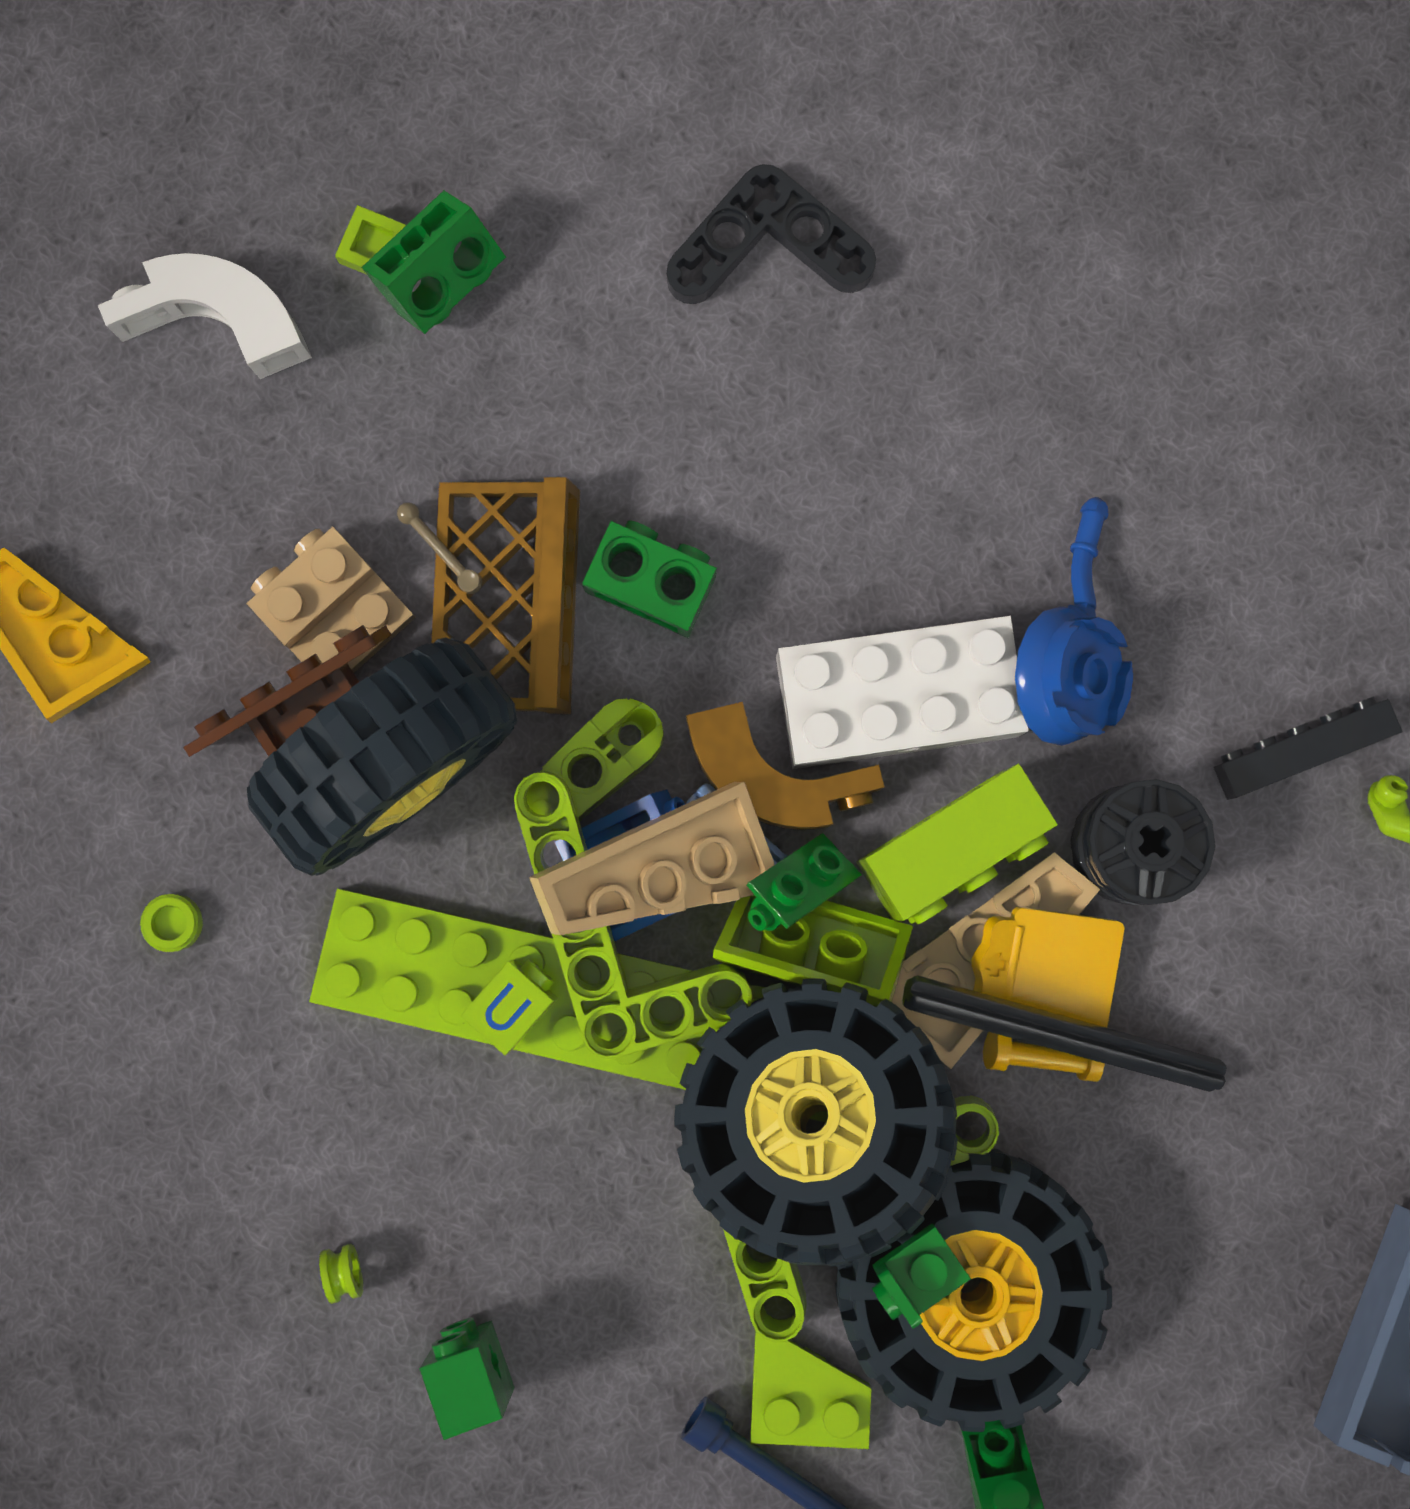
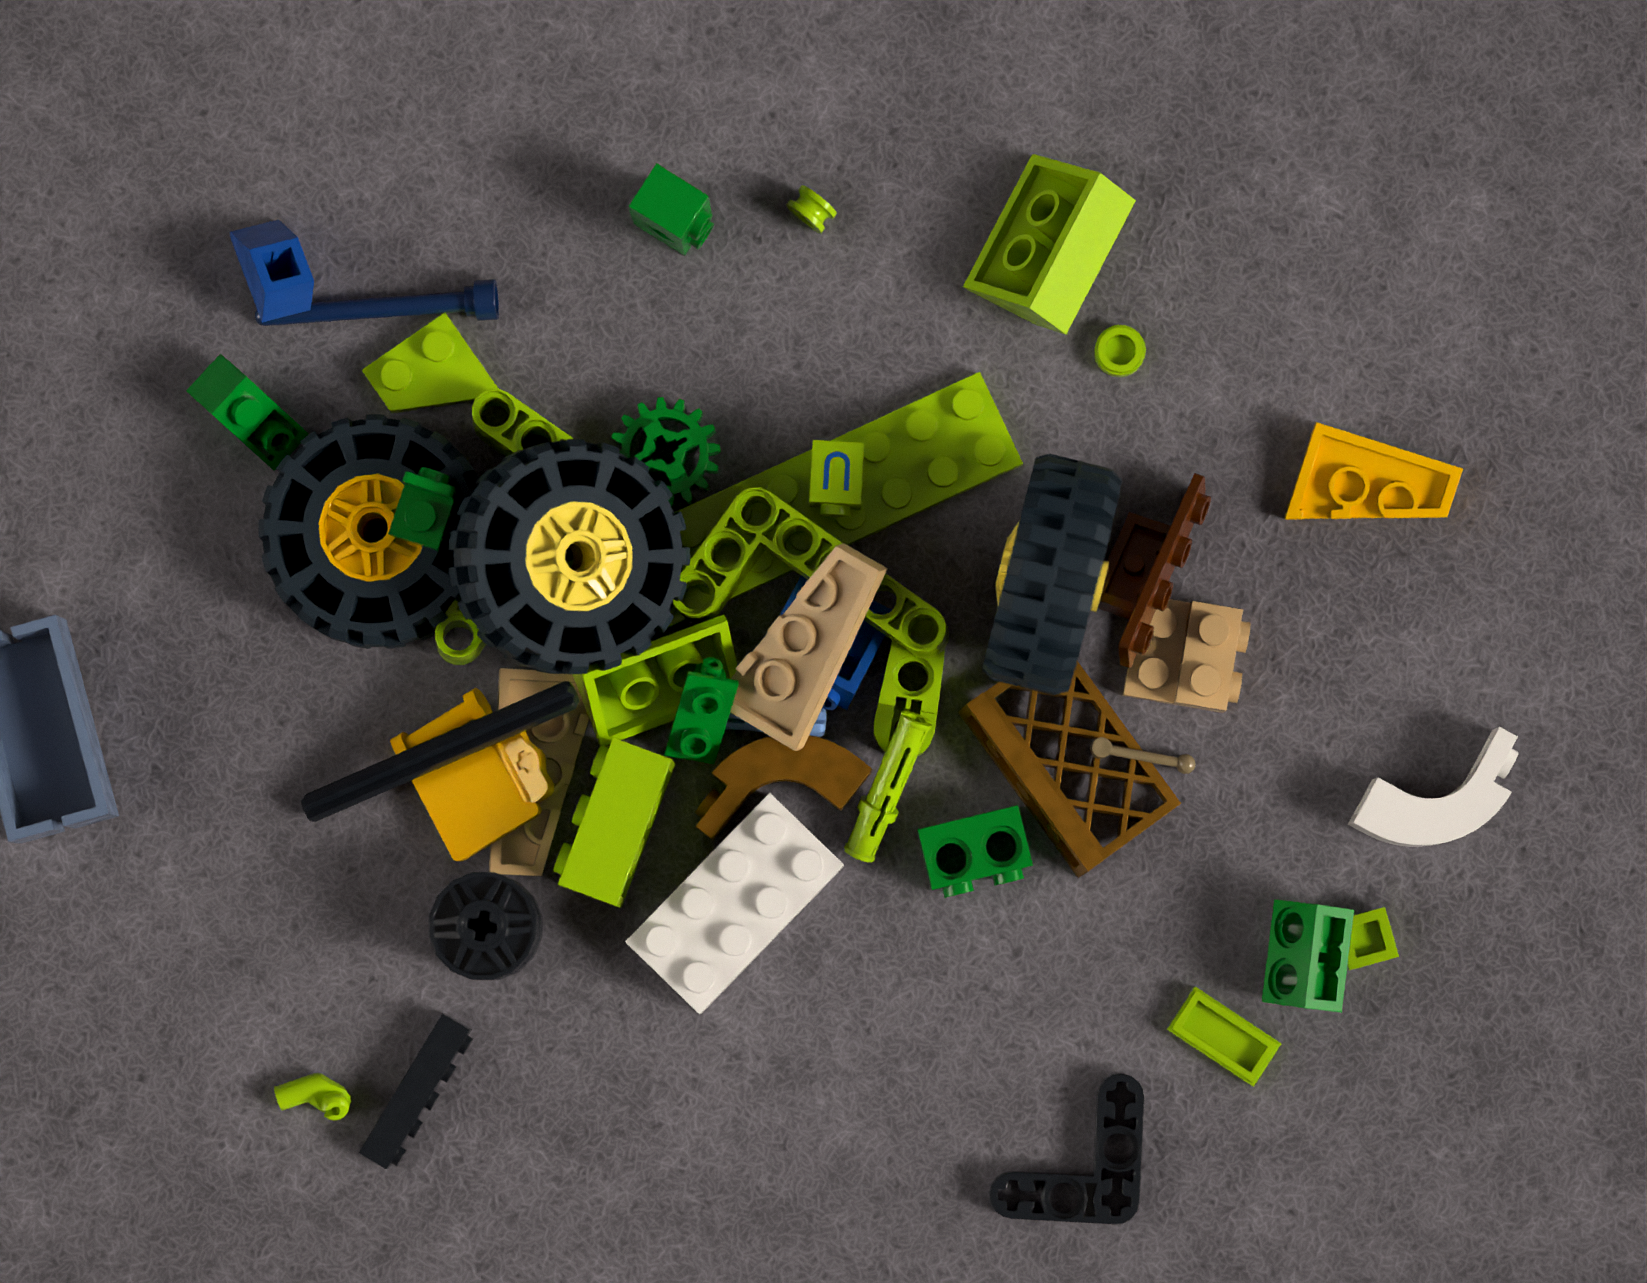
camera: 145 degrees right, 0 degrees up
(149, 1071) = (1050, 242): none -> lime slope
(562, 259) = (1223, 1036): none -> lime tile
(621, 1147) = (686, 440): none -> green gear
(702, 682) = (880, 804): none -> lime pin
(1069, 659) = (633, 1015): blue piece -> none

